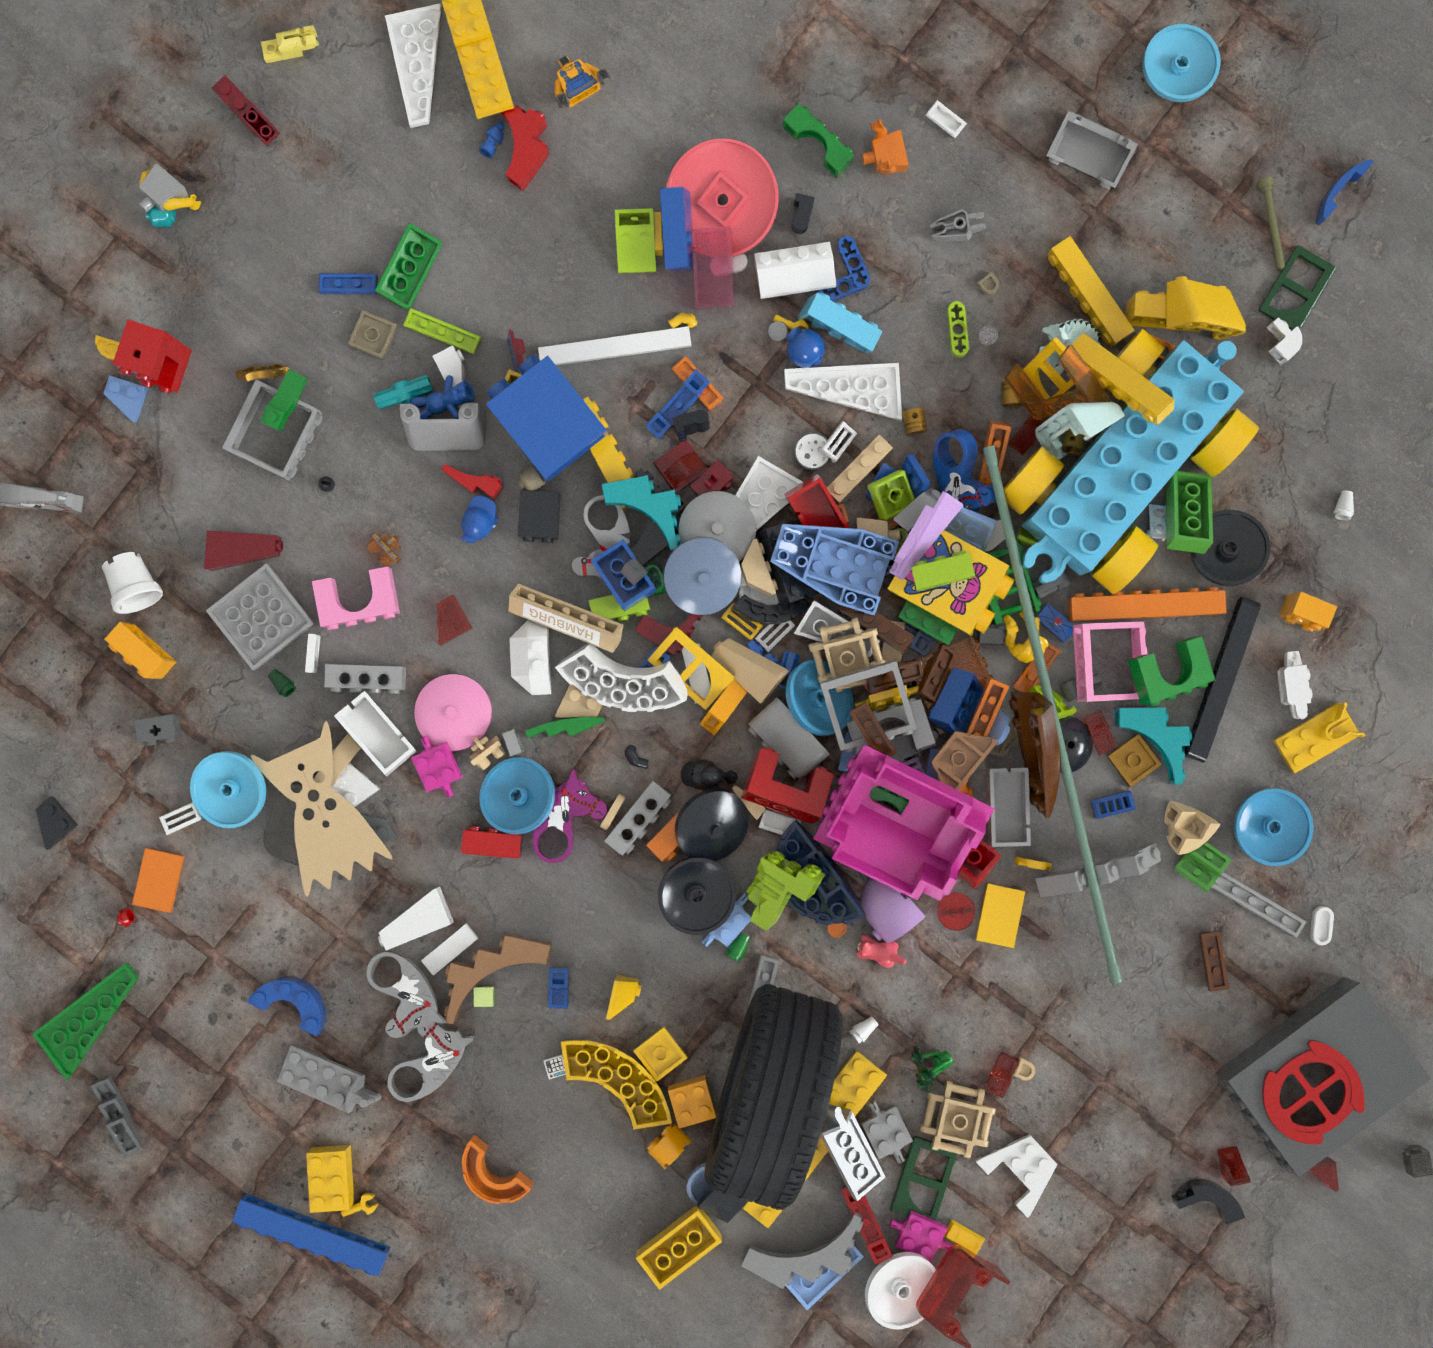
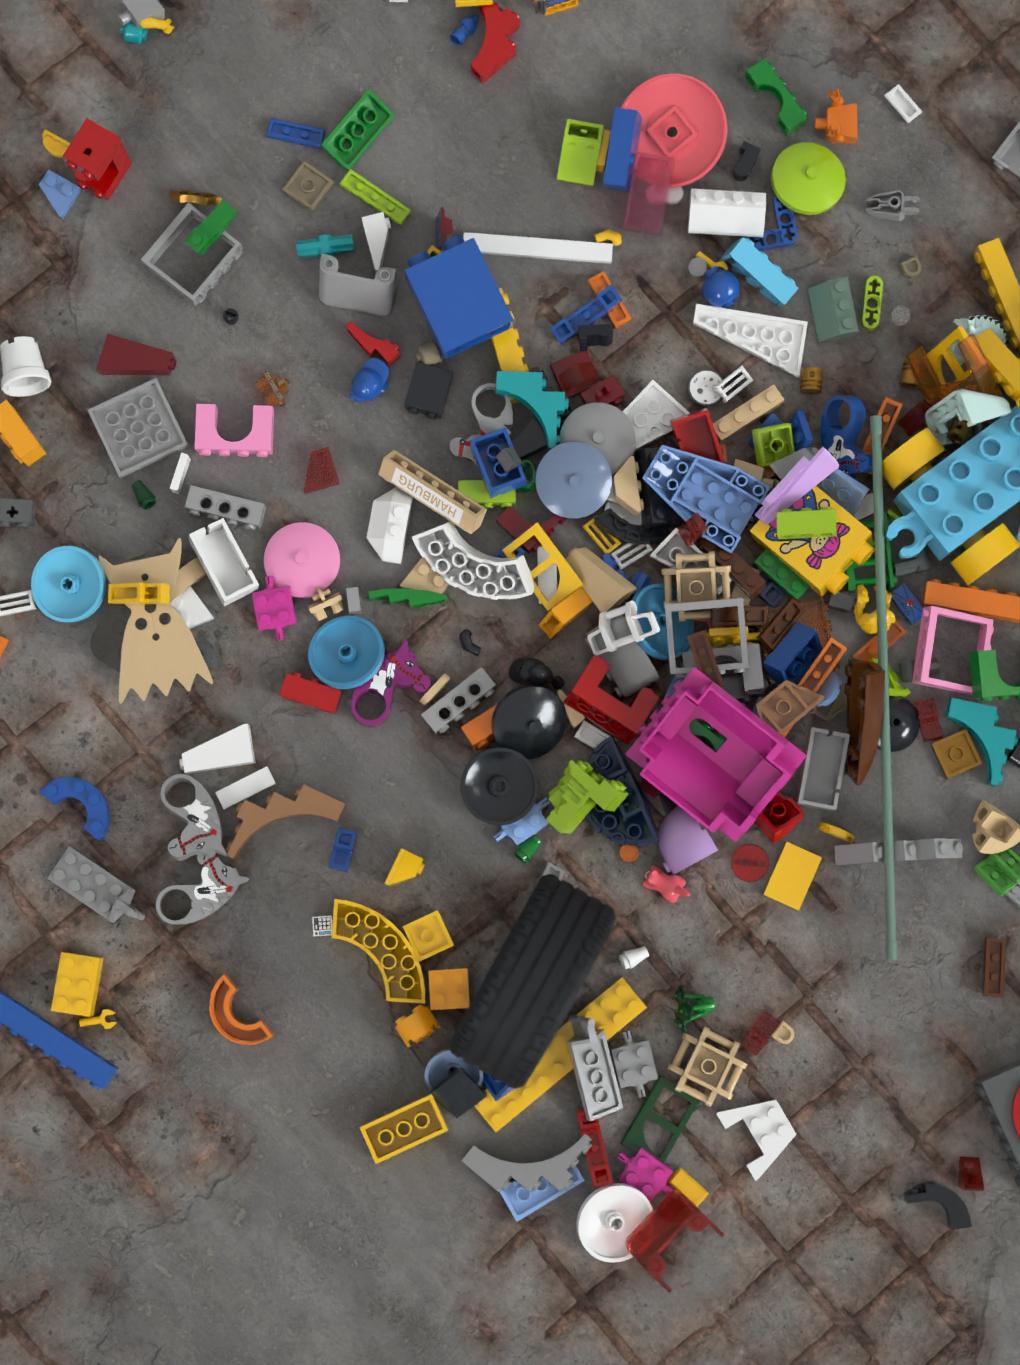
camera: 15 degrees right, 5 degrees down
(298, 786) = (139, 593): none -> yellow slope
(439, 402) = (372, 258): blue animal -> none
(483, 996) = (268, 841): yellowish green tile -> none
(791, 706) = (631, 616): none -> white bar
(831, 601) = (692, 530): none -> clear red slope
(868, 216) = (808, 178): none -> lime dish
(921, 345) = (833, 310): none -> sand green slope
(1129, 800) = (943, 792): blue slope -> none

